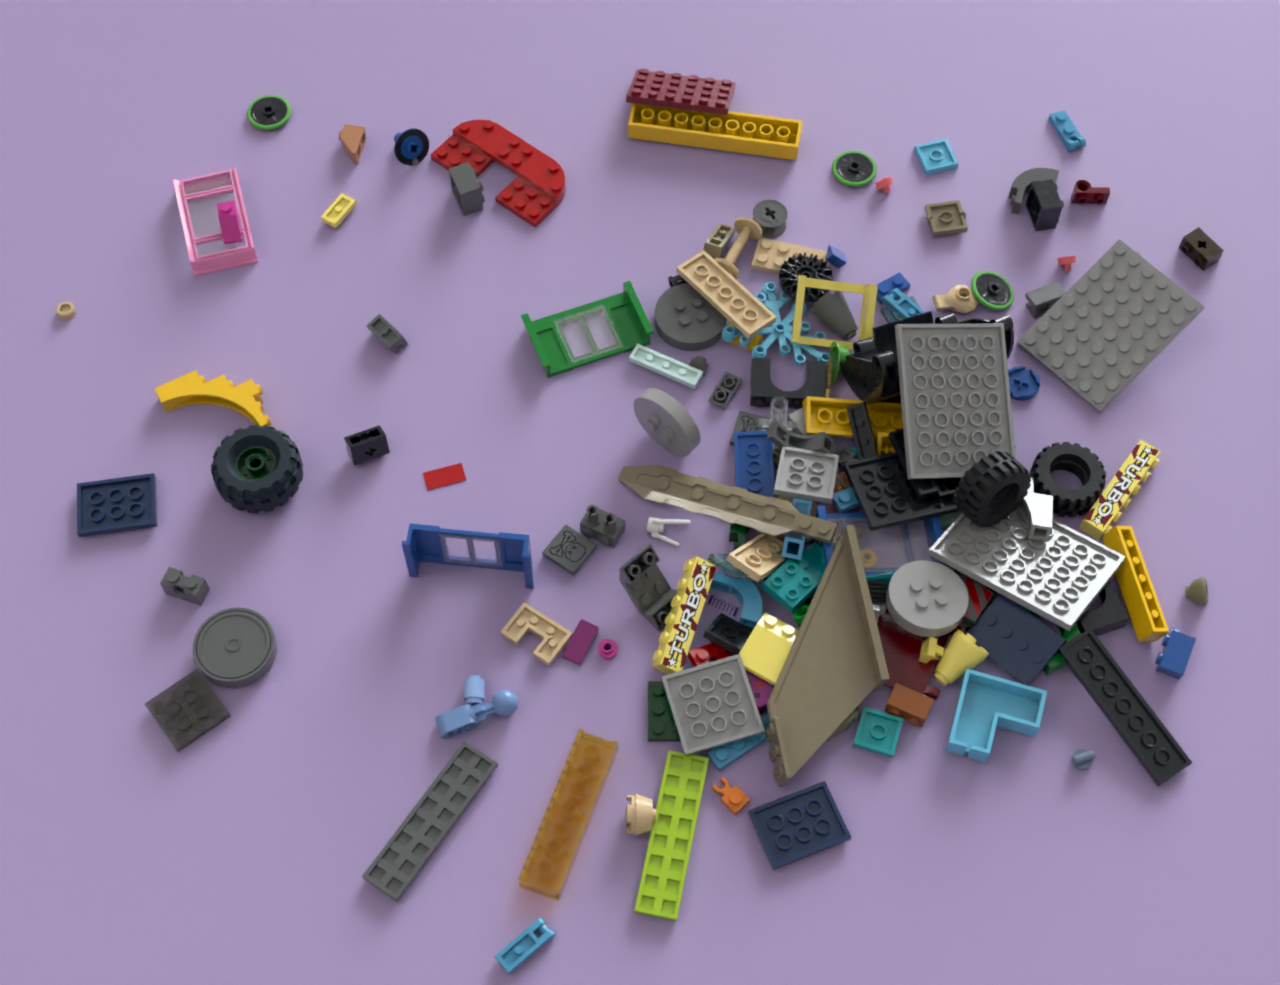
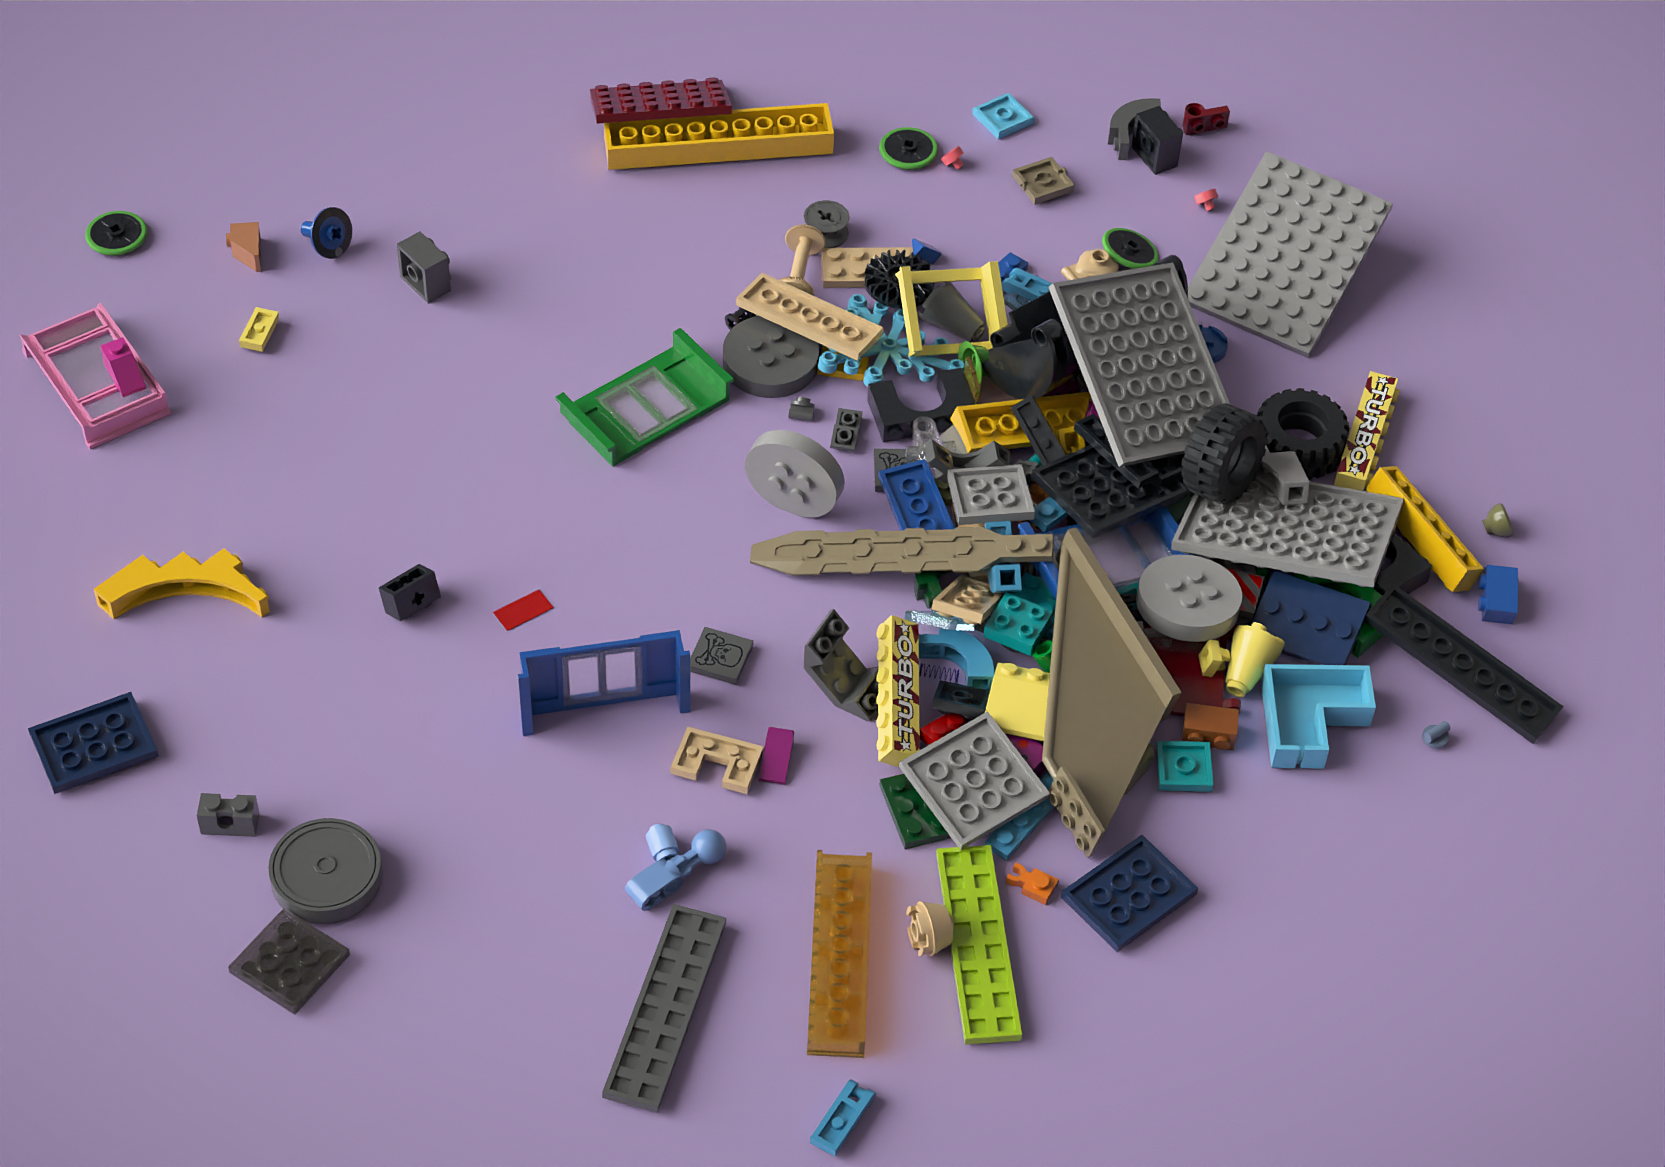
camera: 20 degrees left, 10 degrees down
(257, 468) = (275, 650): black wheel -> none
(386, 333) = (384, 456): dark grey hinge -> none
(539, 178) = (513, 244): red plate -> none
(602, 526) = (753, 615): dark grey brick -> none
(607, 654) = (811, 761): dark pink plate -> none
(657, 525) = (822, 599): white plant -> none
(666, 366) = (759, 417): light aqua plate -> none
(719, 241) = (773, 260): dark tan slope -> none
(1043, 298) = (1196, 244): hinge -> none
(1066, 130) = (1150, 55): dark azure plate -> none
(1201, 249) = (1358, 152): dark brown brick -> none

